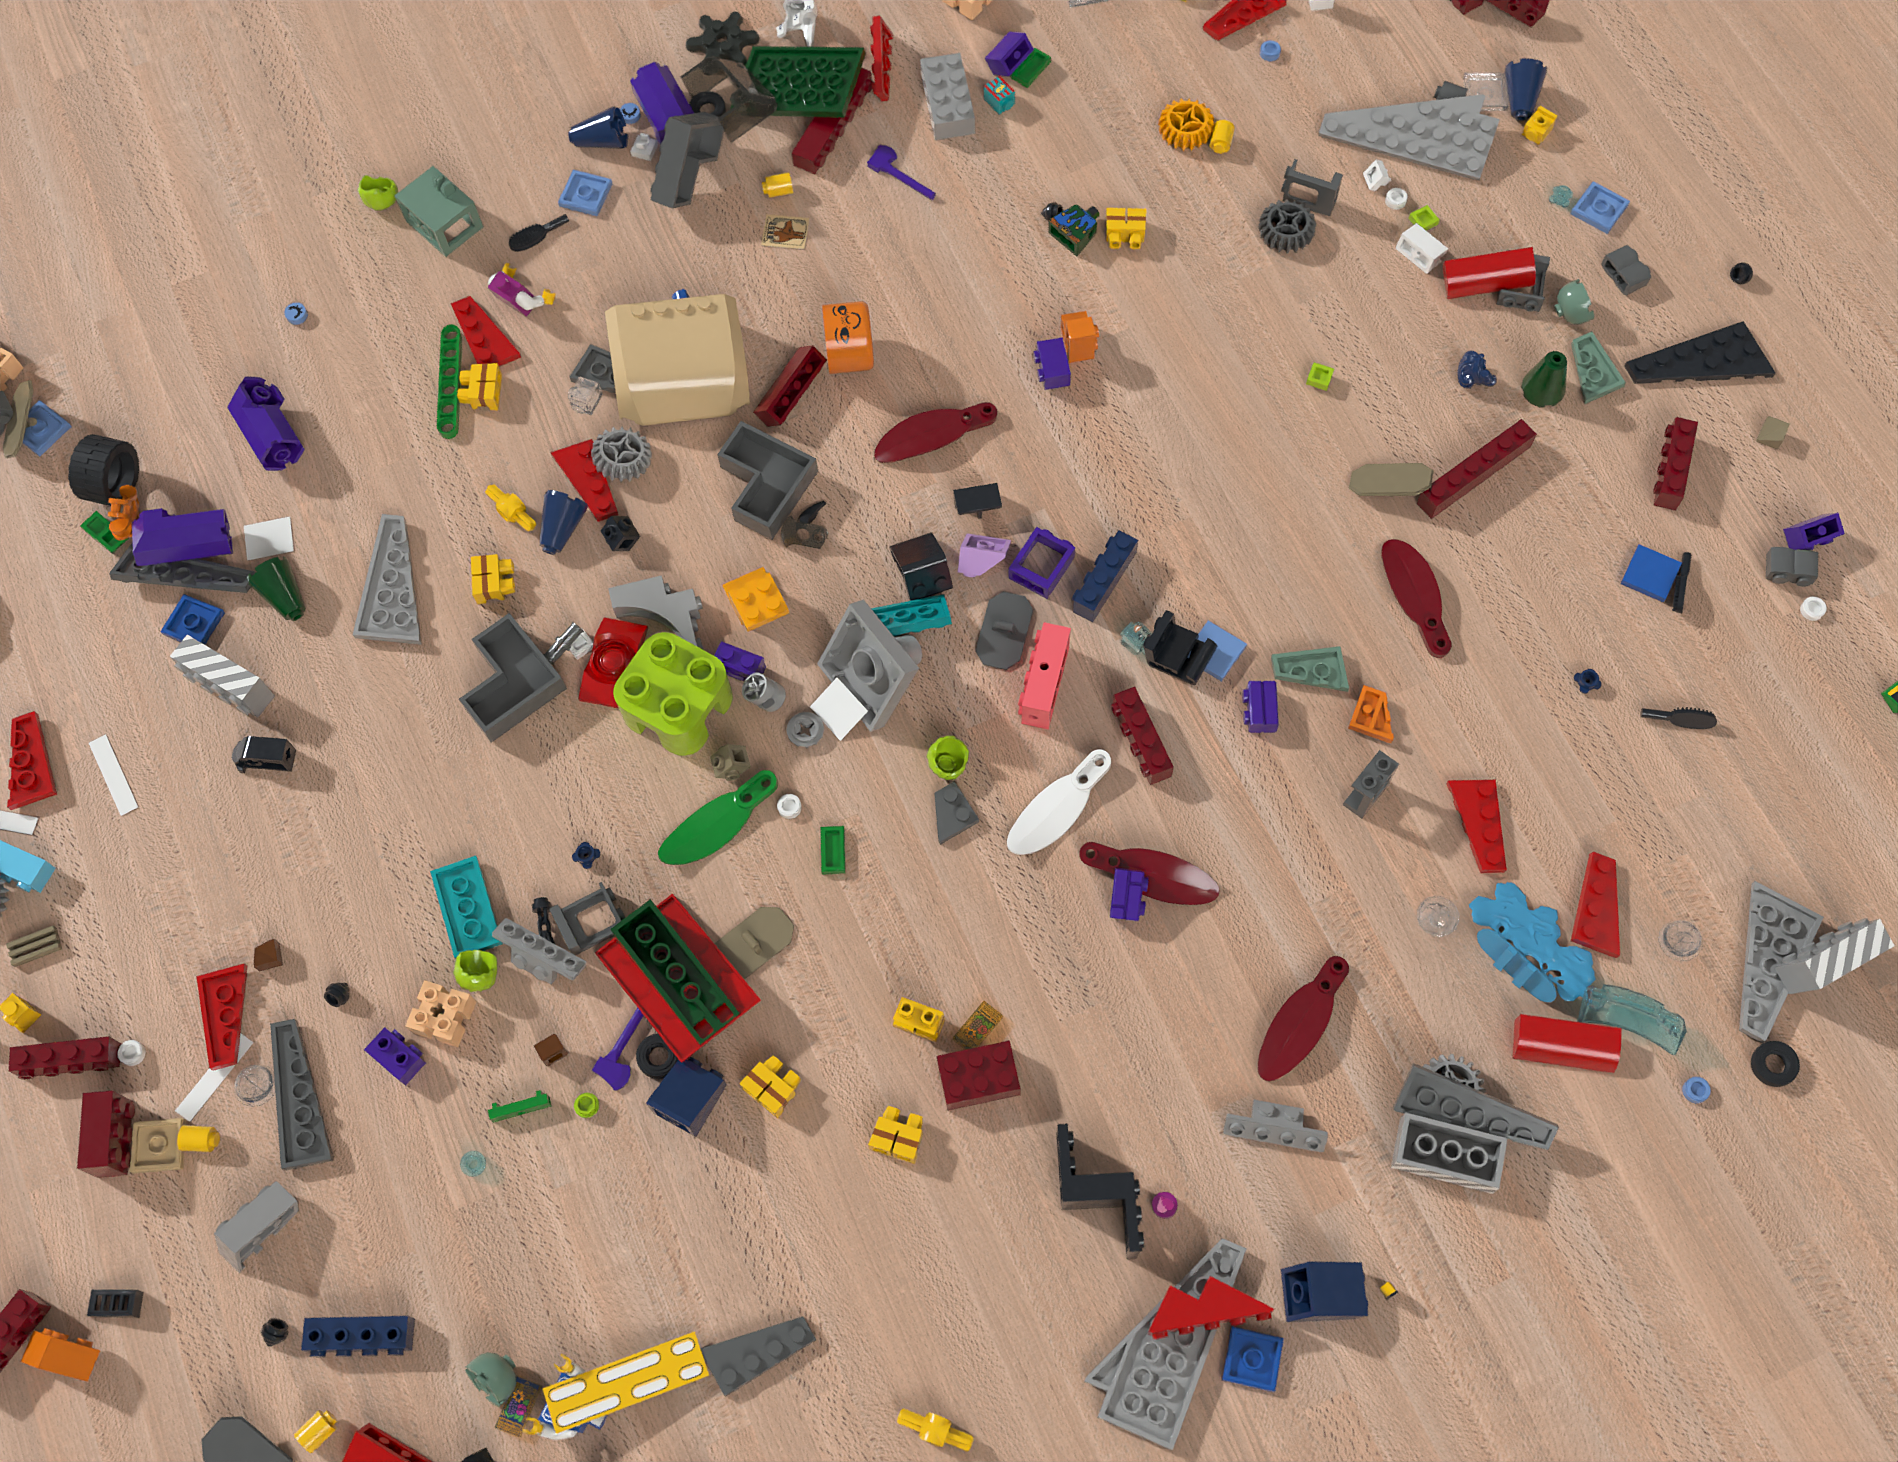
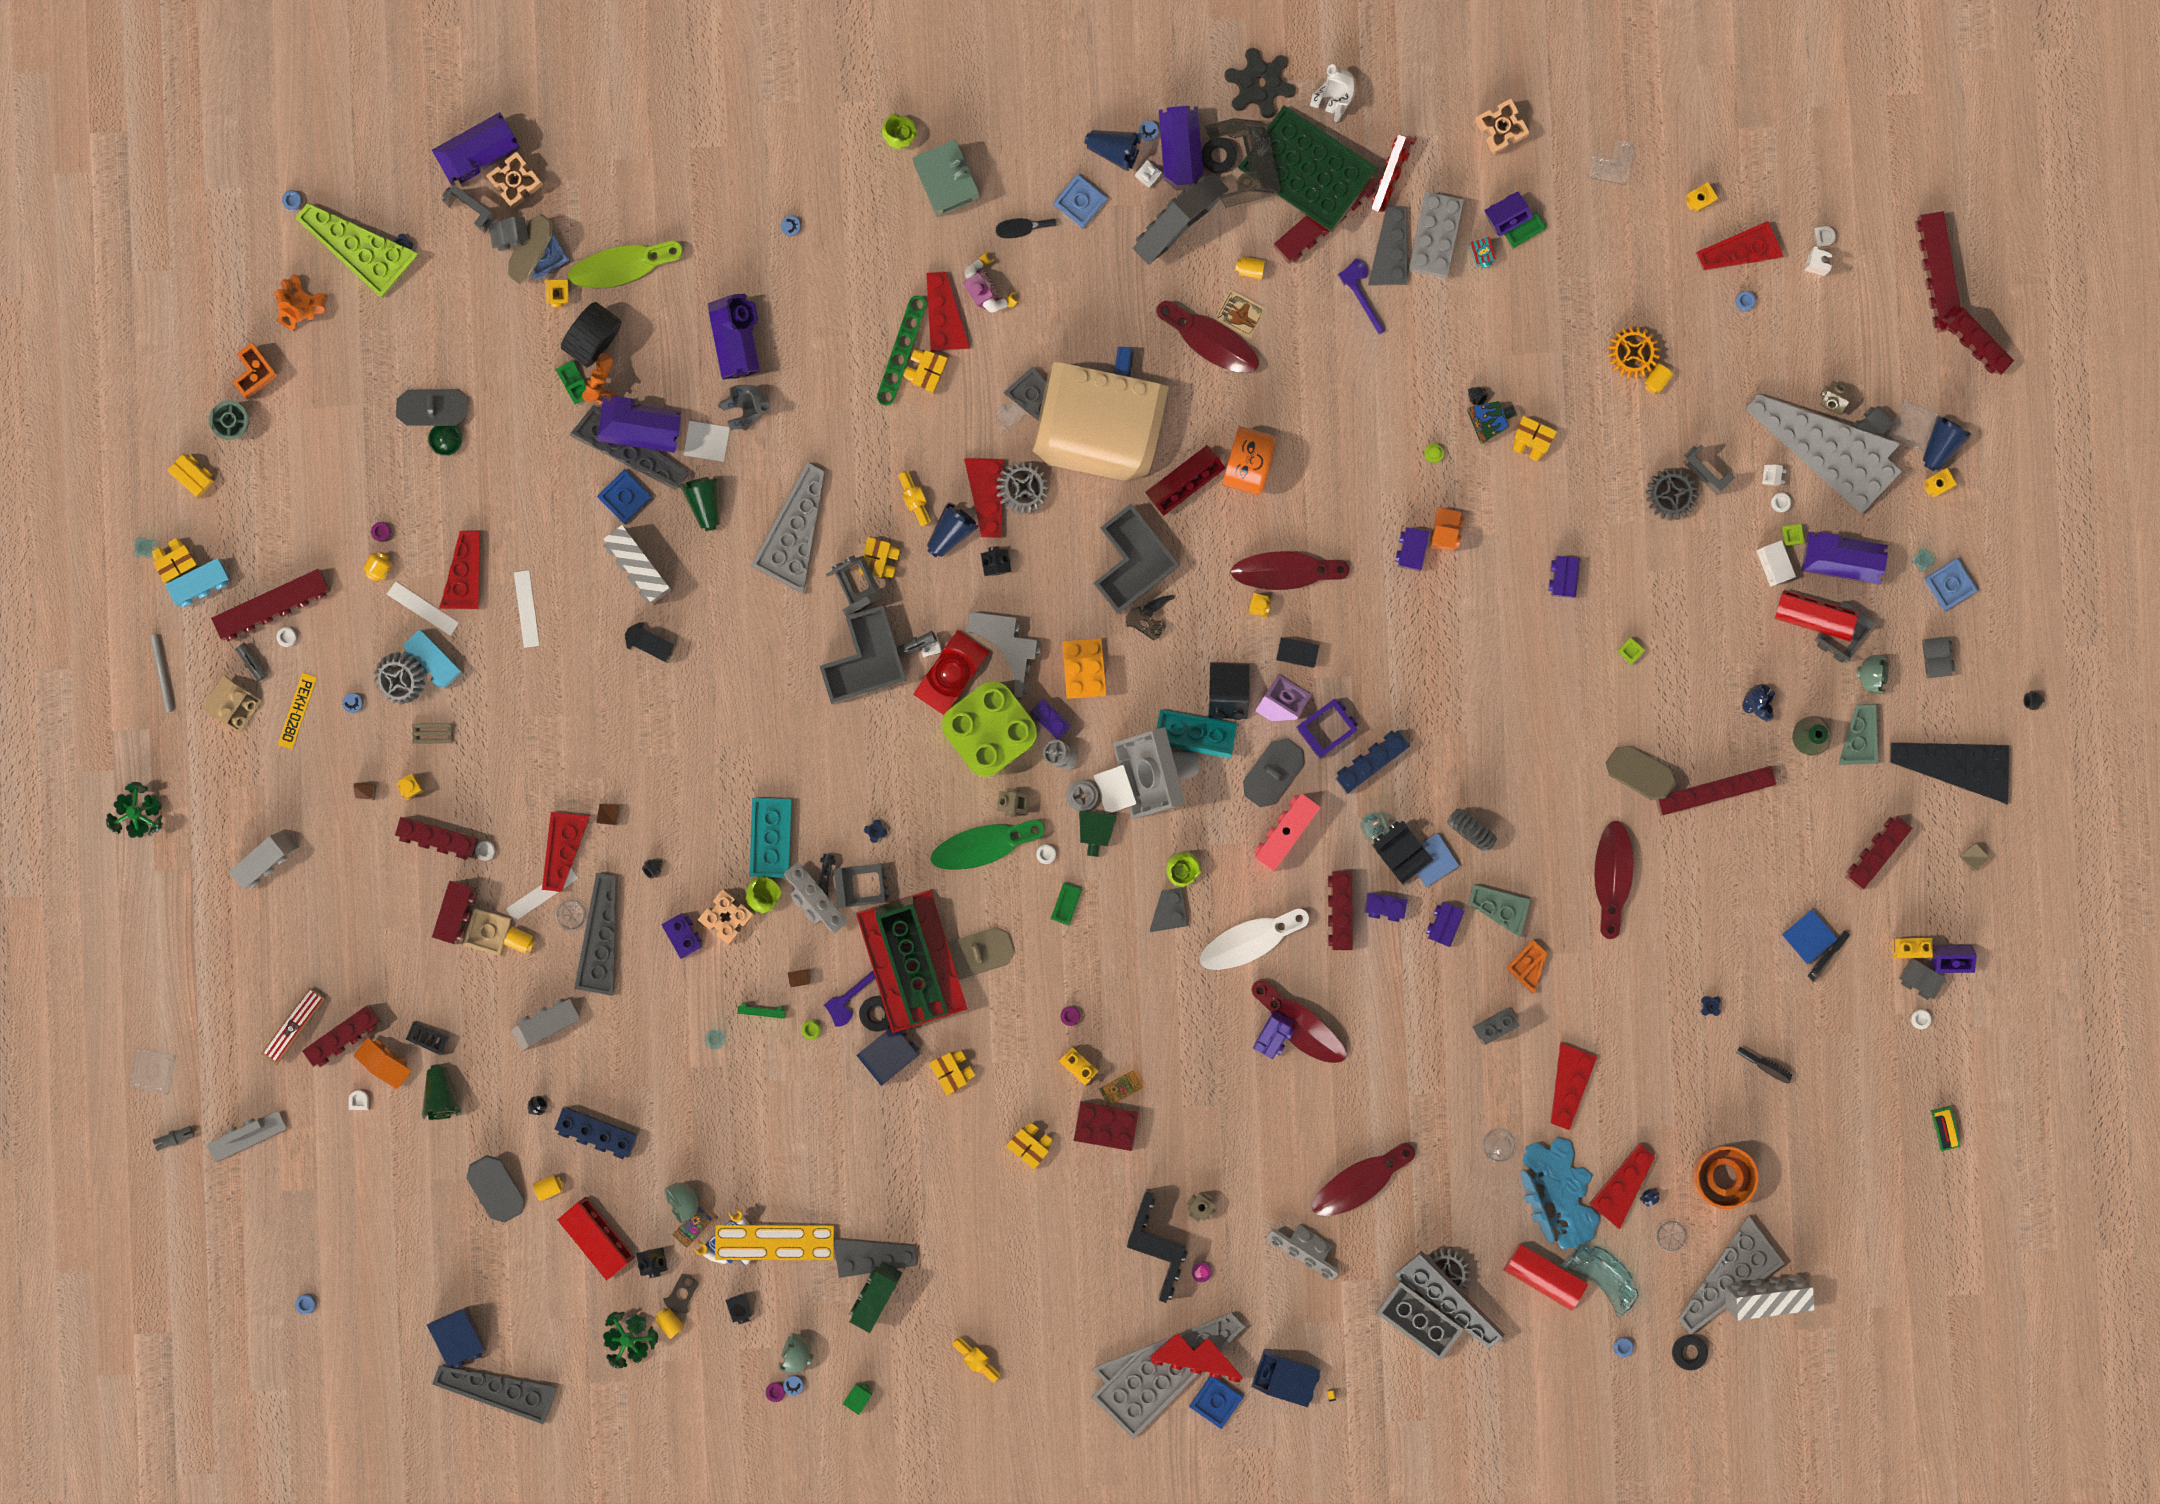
camera: 20 degrees right, 20 degrees up
(44, 1418) = (359, 1100): none -> white tile
(59, 452) = (561, 286): none -> yellow brick
(130, 406) = (621, 264): none -> lime plant
(144, 1369) = (439, 1095): none -> dark green cone
(296, 476) = (753, 402): none -> dark grey piece
(452, 600) = (865, 598): none -> dark grey window
(761, 260) = (1211, 339): none -> dark red plant
(775, 1398) = (874, 1296): none -> dark green brick
(834, 757) = (1095, 830): none -> dark green torso
(886, 969) = (1070, 1016): none -> magenta tile
(911, 128) = (1391, 252): none -> dark grey wing
(918, 473) = (1260, 605): none -> yellow brick
(1033, 277) = (1433, 453): none -> lime plate
(1129, 1133) = (1204, 1199): none -> dark tan brick
(1188, 712) = (1385, 906): none -> dark purple brick
(1219, 334) = (1564, 577): none -> dark purple brick
(1244, 597) = (1472, 830): none -> dark grey gear
(1405, 95) = (1836, 397): none -> dark tan brick
(1487, 213) = (1844, 558): none -> dark purple brick
(1635, 905) = (1650, 1197): none -> dark blue plate
(1723, 829) = (1745, 1177): none -> orange piece
(1760, 539) = (1912, 948): none -> yellow hips

